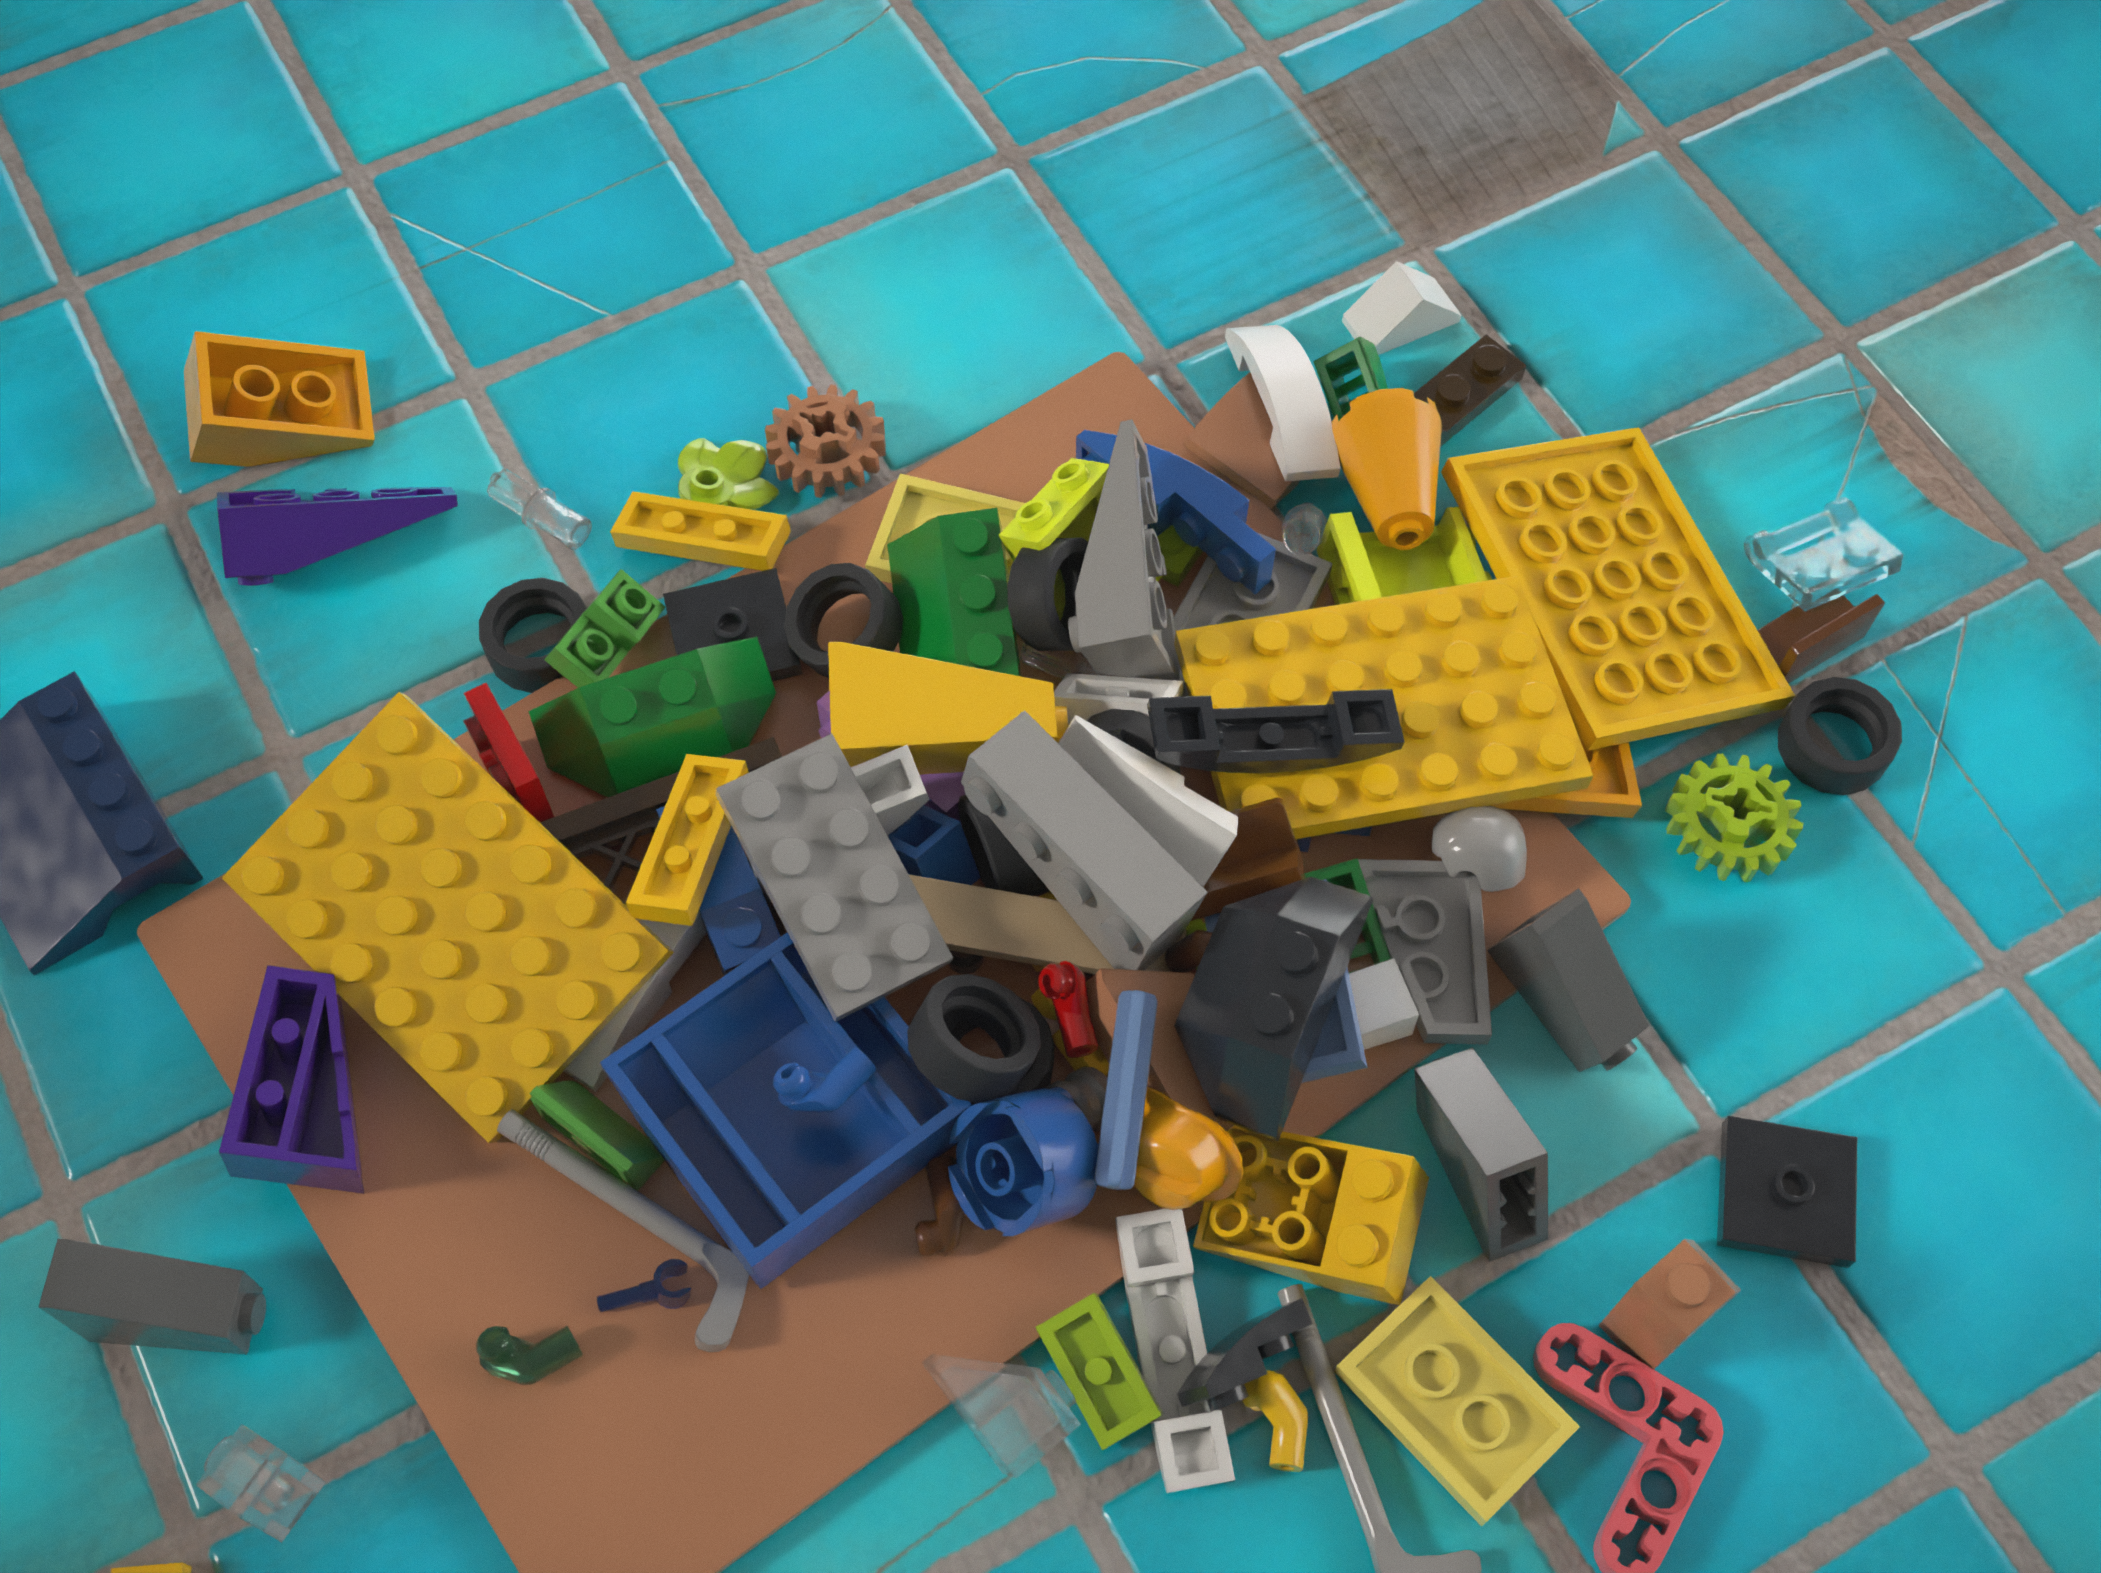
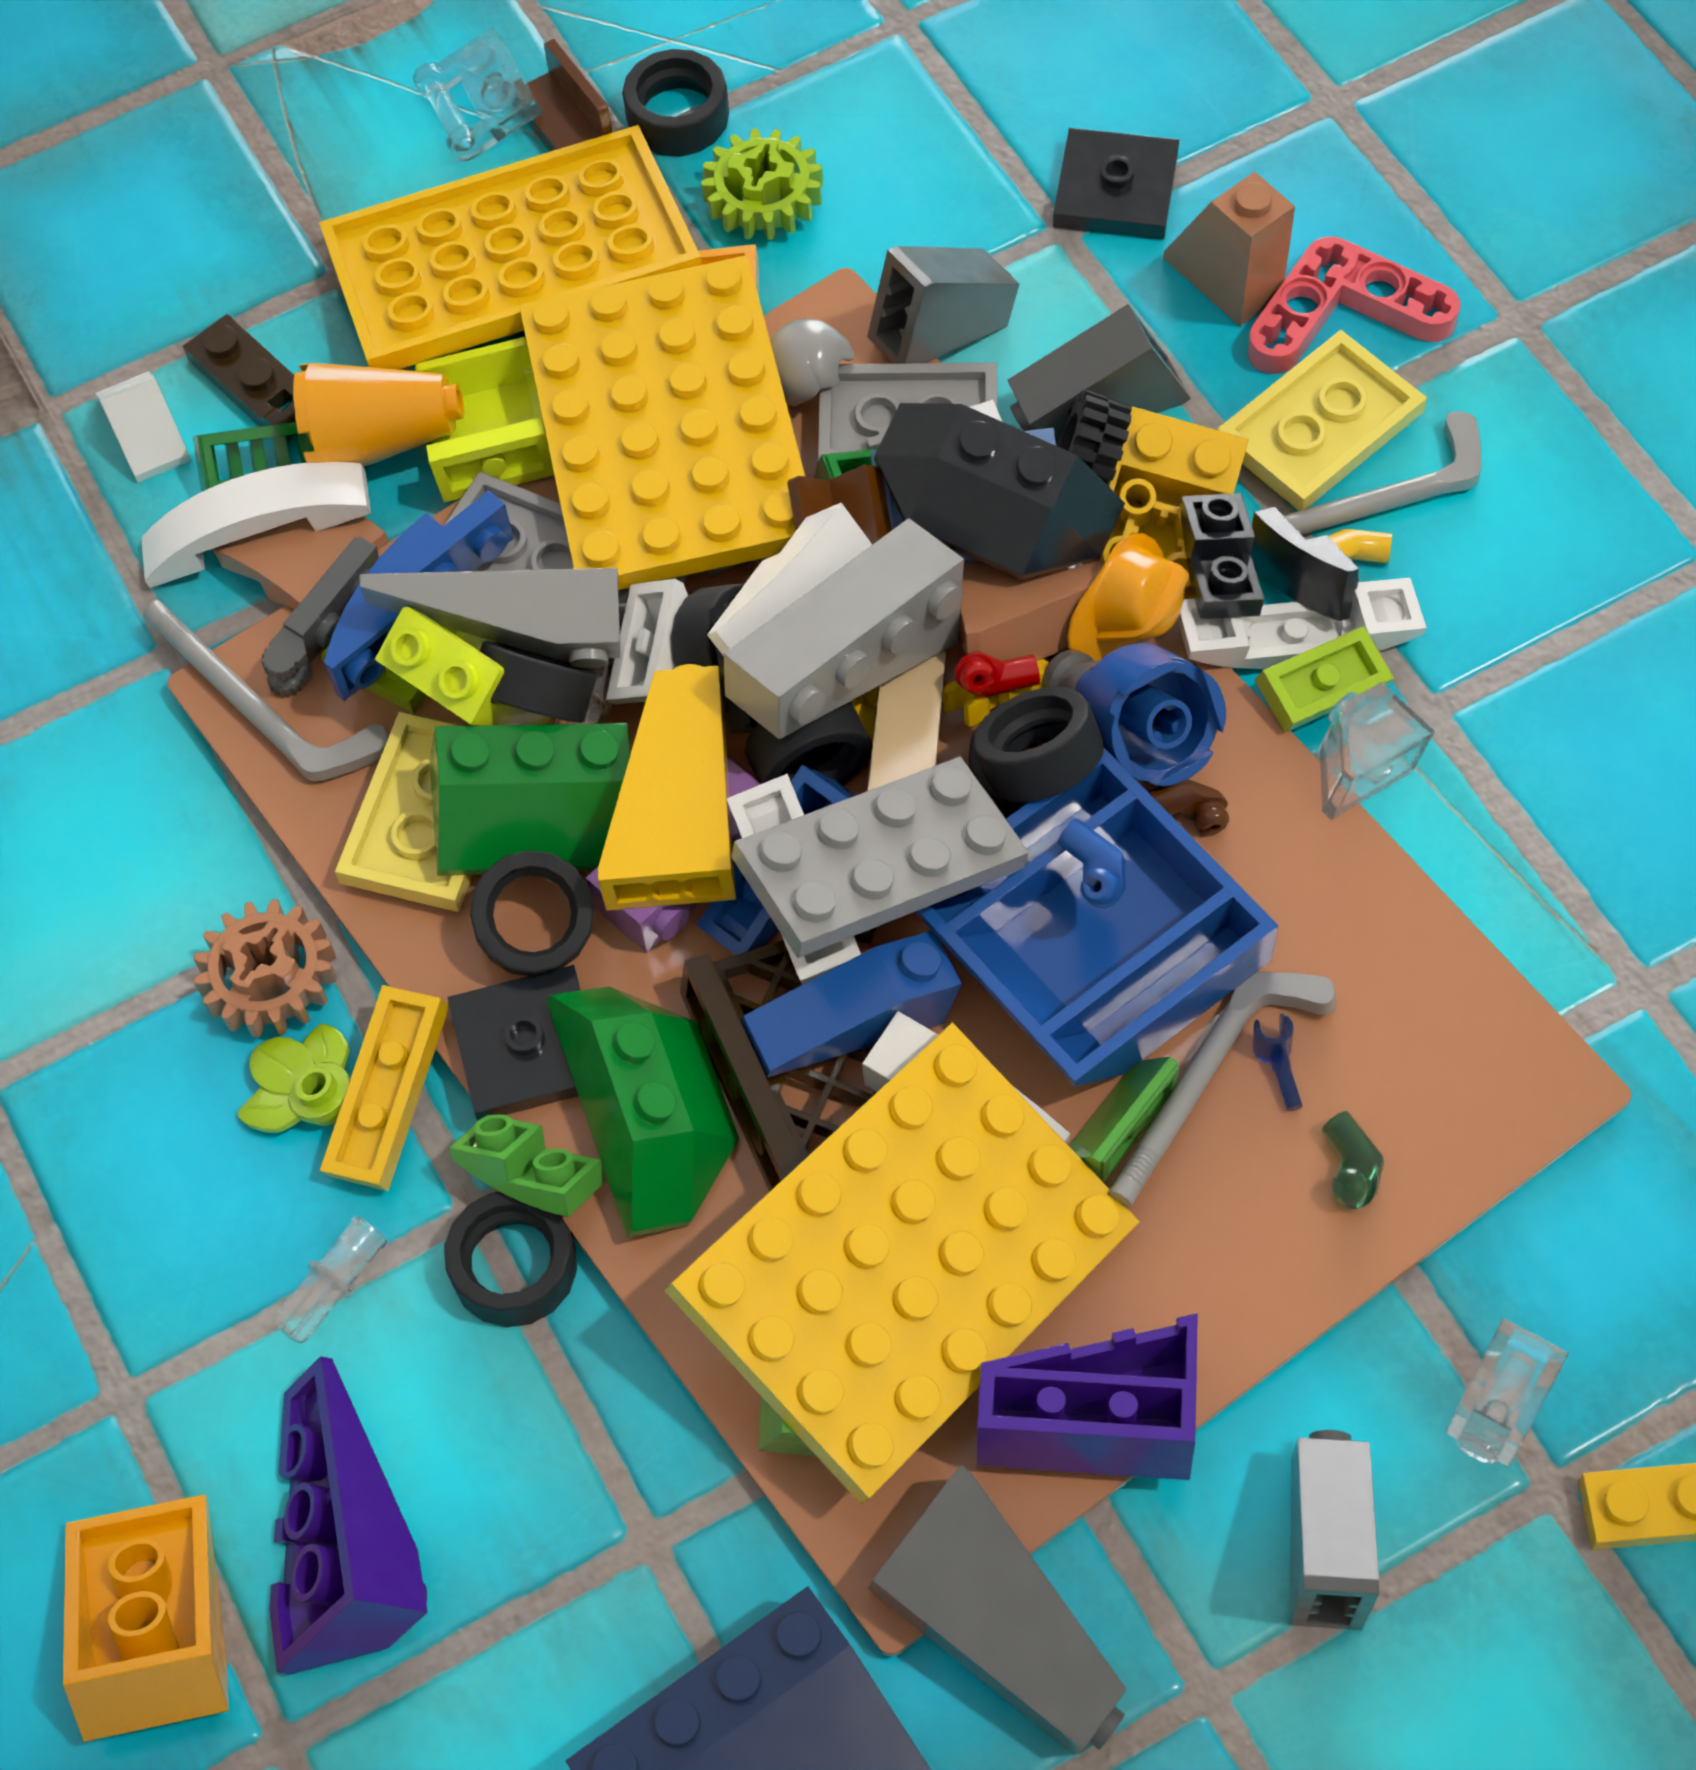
camera: 85 degrees left, 0 degrees up
(132, 1008) = (996, 1613): none -> dark grey slope
(503, 754) = (694, 1222): red plate -> none
(685, 843) = (825, 1009): yellow plate -> none
(1025, 455) = (311, 761): none -> light grey piece
(1126, 1090) = (1088, 612): medium blue axle -> none
(1172, 438) = (315, 619): none -> dark grey hinge
(1233, 1251) = (1218, 556): none -> black slope
(1275, 738) = (716, 474): black slope -> none
(1303, 528) = (432, 495): clear axle -> none
(1376, 1121) = (1097, 432): none -> black tyre

